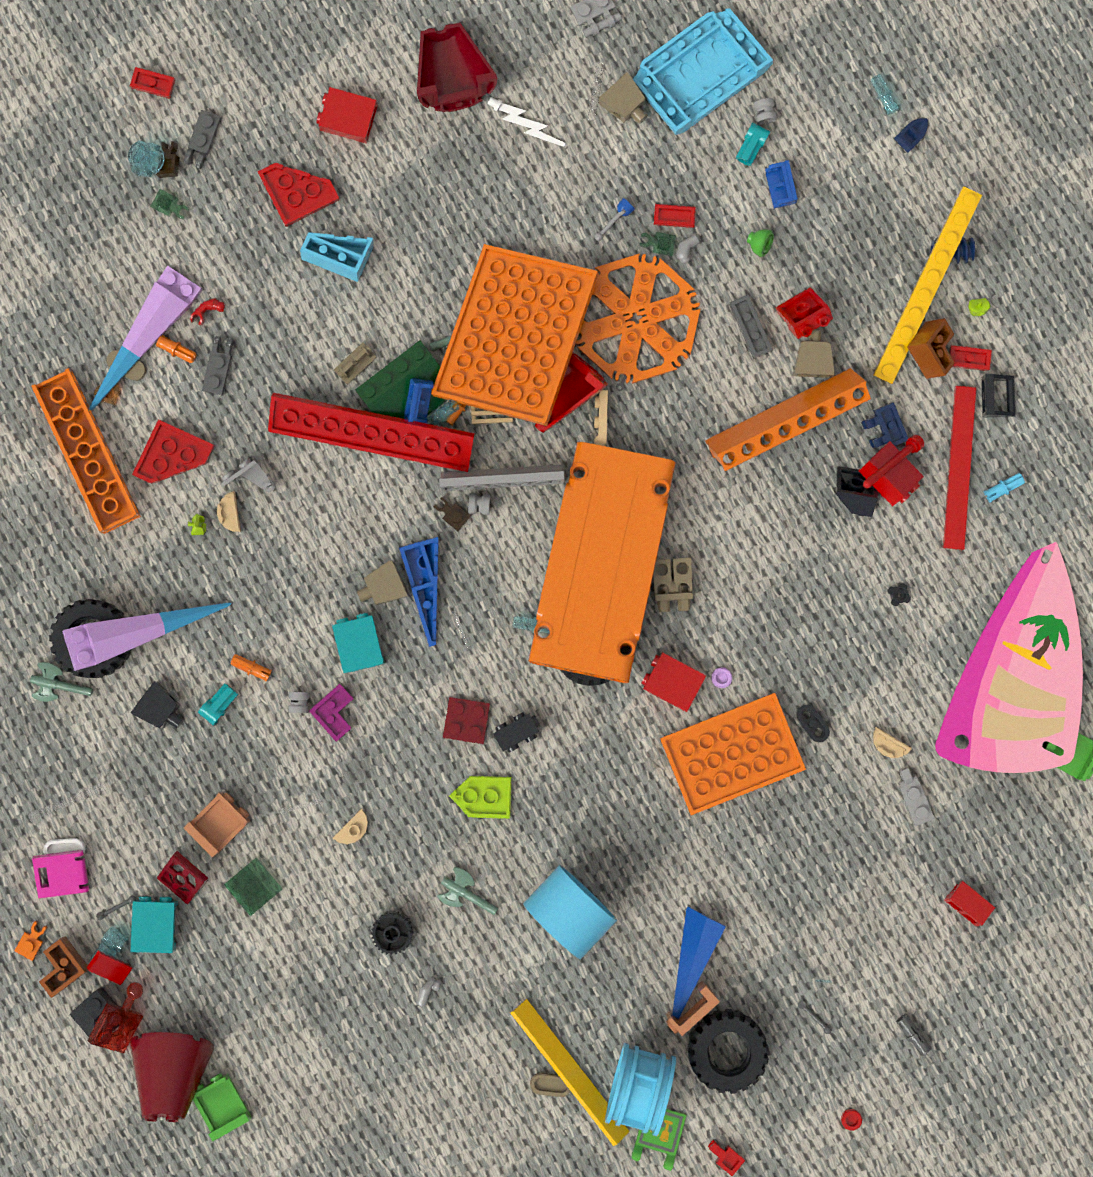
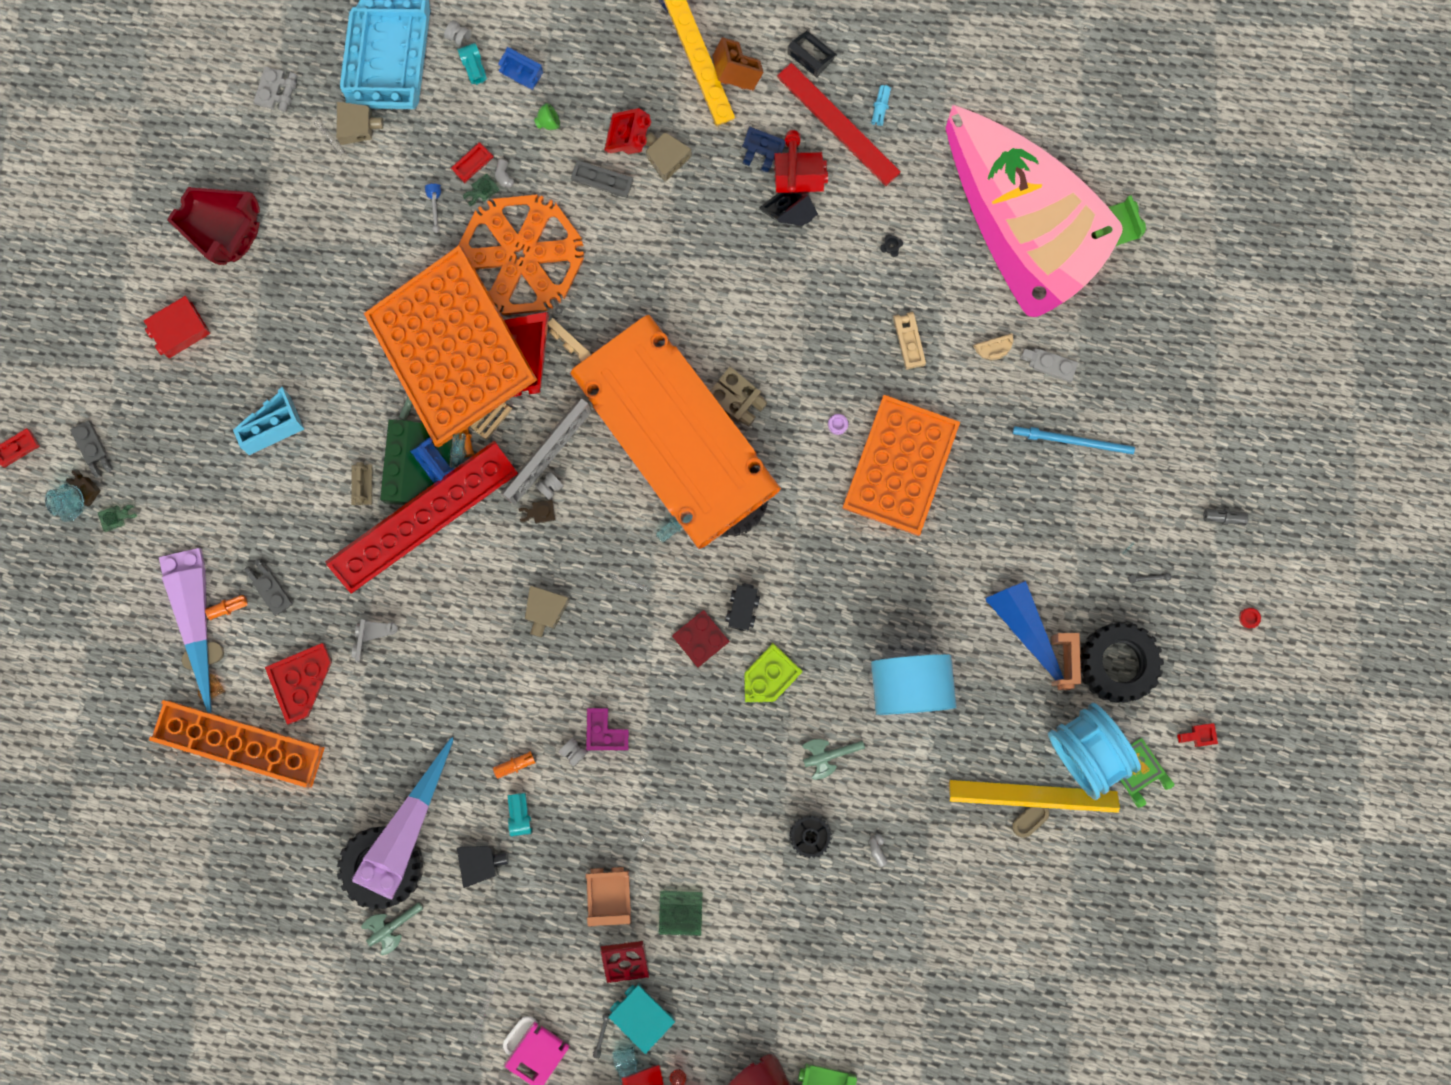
camera: 45 degrees left, 5 degrees down
(198, 525) = (373, 711): lime piece -> none
(212, 304) = (218, 551): red piece -> none
(228, 512) = (383, 677): tan plate -> none
(296, 192) = (197, 414): red plate -> none
(353, 829) = (706, 797): tan plate -> none
(357, 643) = (570, 667): teal panel -> none
(422, 570) = (559, 571): blue wedge -> none
(514, 118) = (294, 212): white piece -> none
(673, 681) = (809, 460): red brick -> none
(787, 415) = (690, 208): orange tile -> none
(813, 722) = (930, 388): black plate -> none
(835, 675) = (909, 341): none -> tan plate
(848, 833) = (1034, 433): none -> dark azure bar
(969, 904) = (1163, 392): red hinge -> none
(970, 358) = (767, 47): red plate -> none
(978, 307) = (736, 11): lime piece -> none

